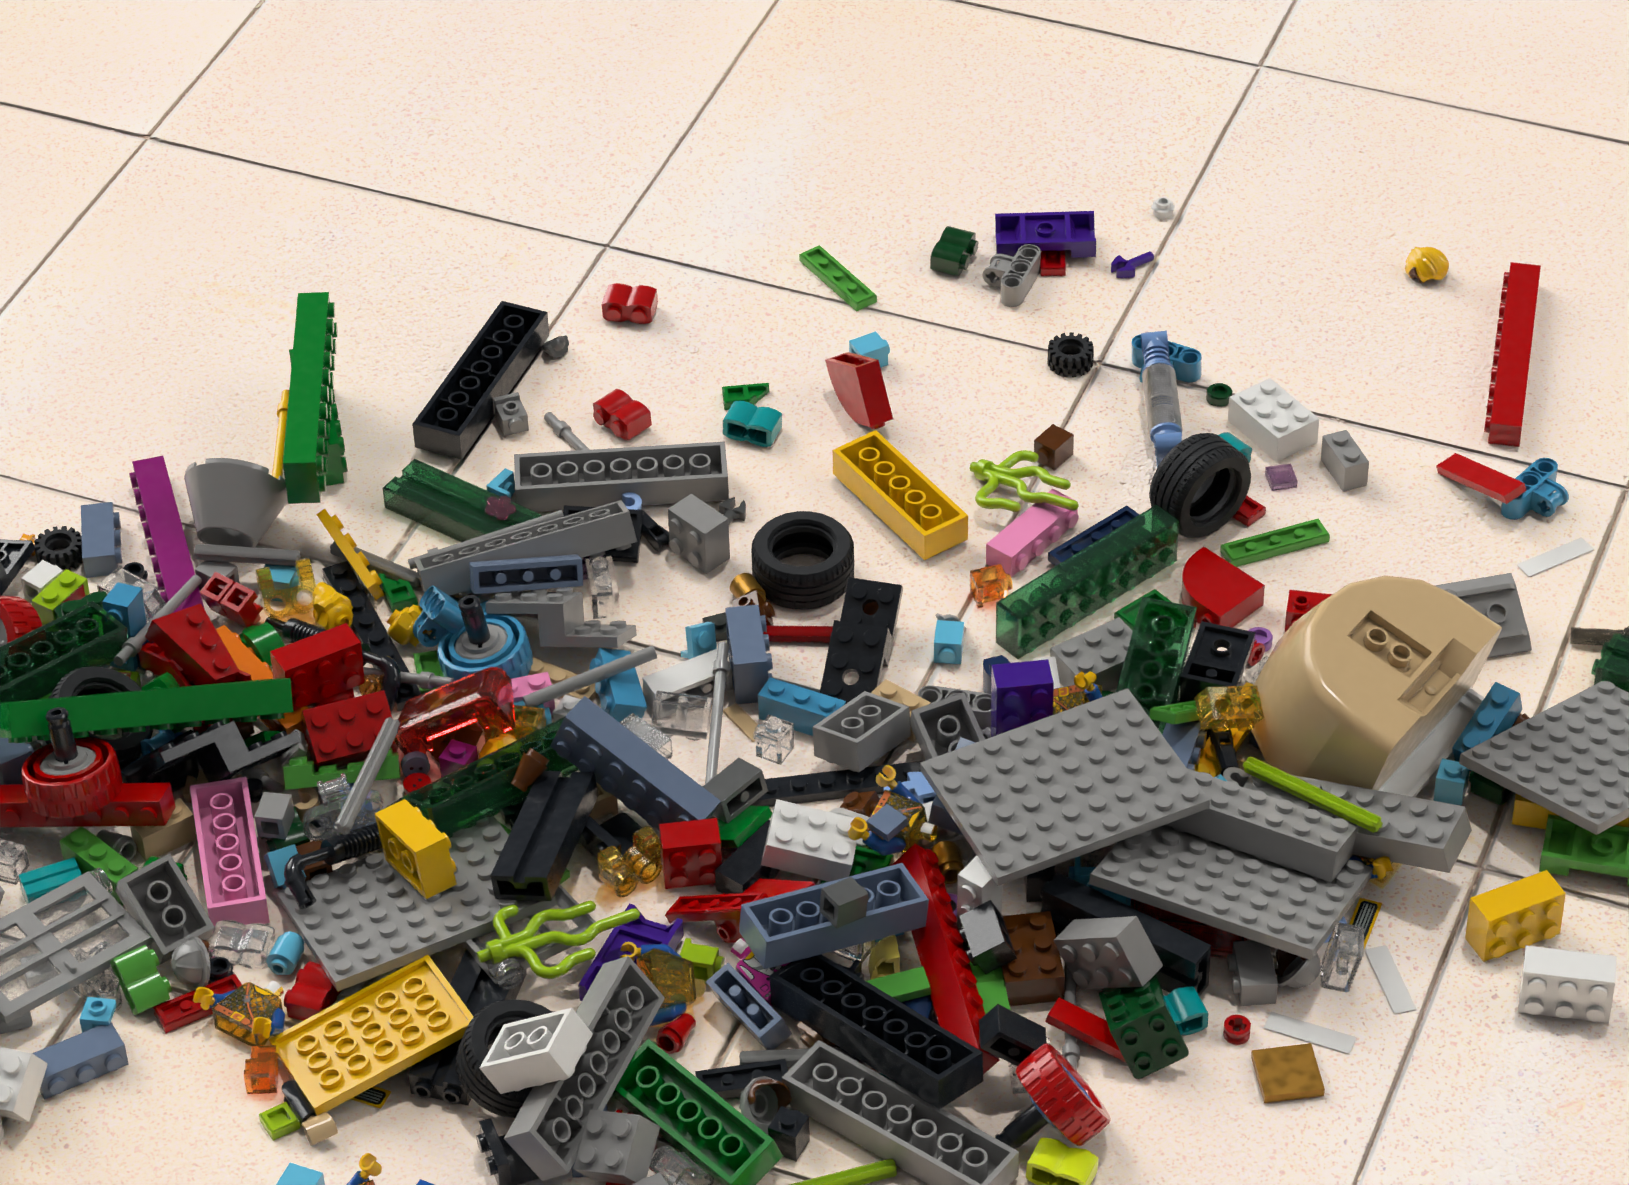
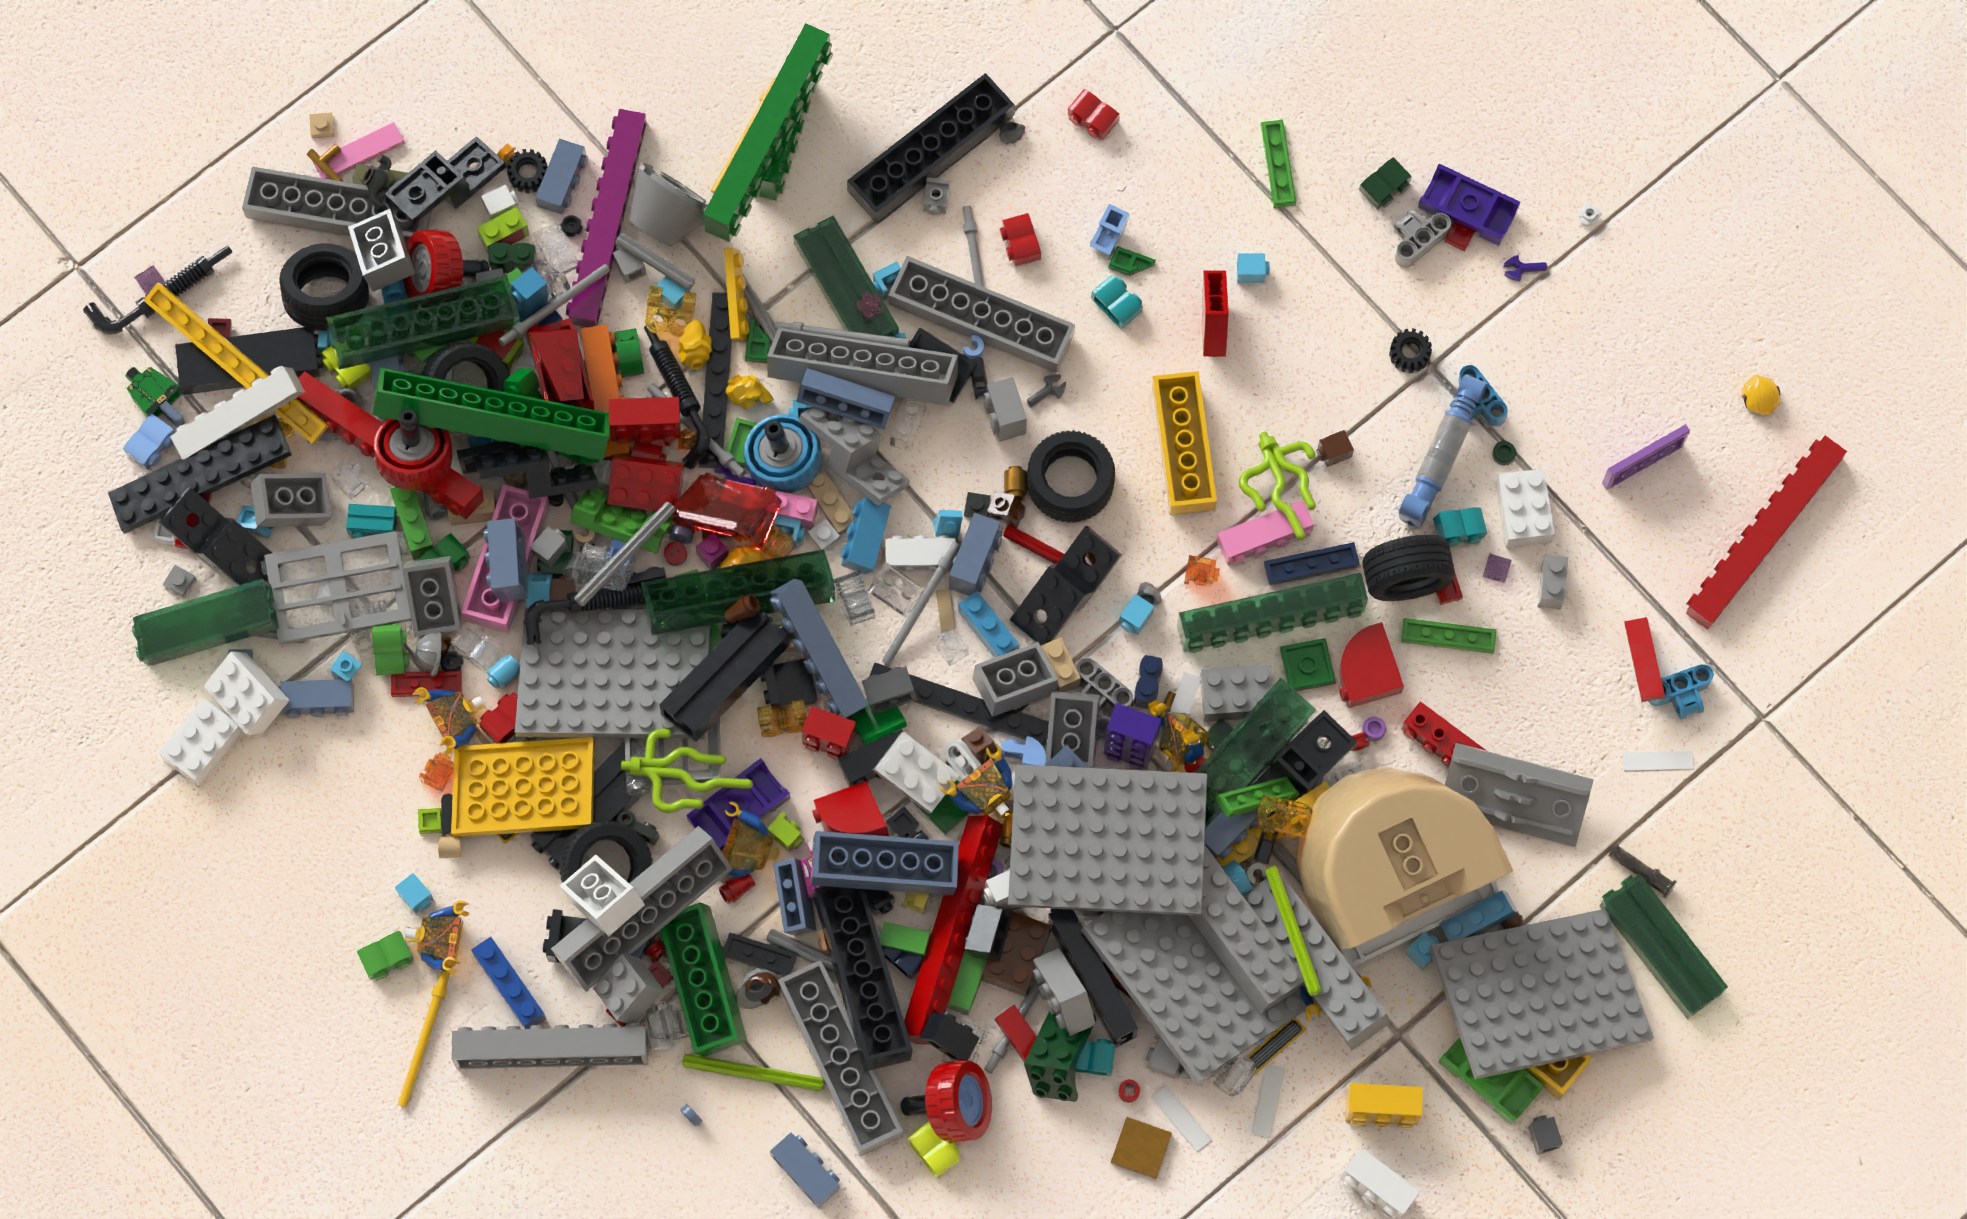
camera: 25 degrees right, 30 degrees up
(231, 600) = (622, 303): red hips -> none
(236, 829) = (506, 560): none -> sand blue brick
(416, 848) = (627, 641): yellow brick -> none
(438, 615) = (765, 402): dark azure piece -> none
(590, 677) = (841, 526): light grey piece -> none
(707, 372) = (1110, 229): none -> light blue brick
(711, 907) = (818, 797): red tile -> none
(790, 1132) = (764, 1021): black brick -> none
(843, 902) = (887, 870): dark grey brick -> none
(887, 822) = (972, 793): sand blue tile -> none
(1358, 337) = (1645, 457): none -> medium lavender tile

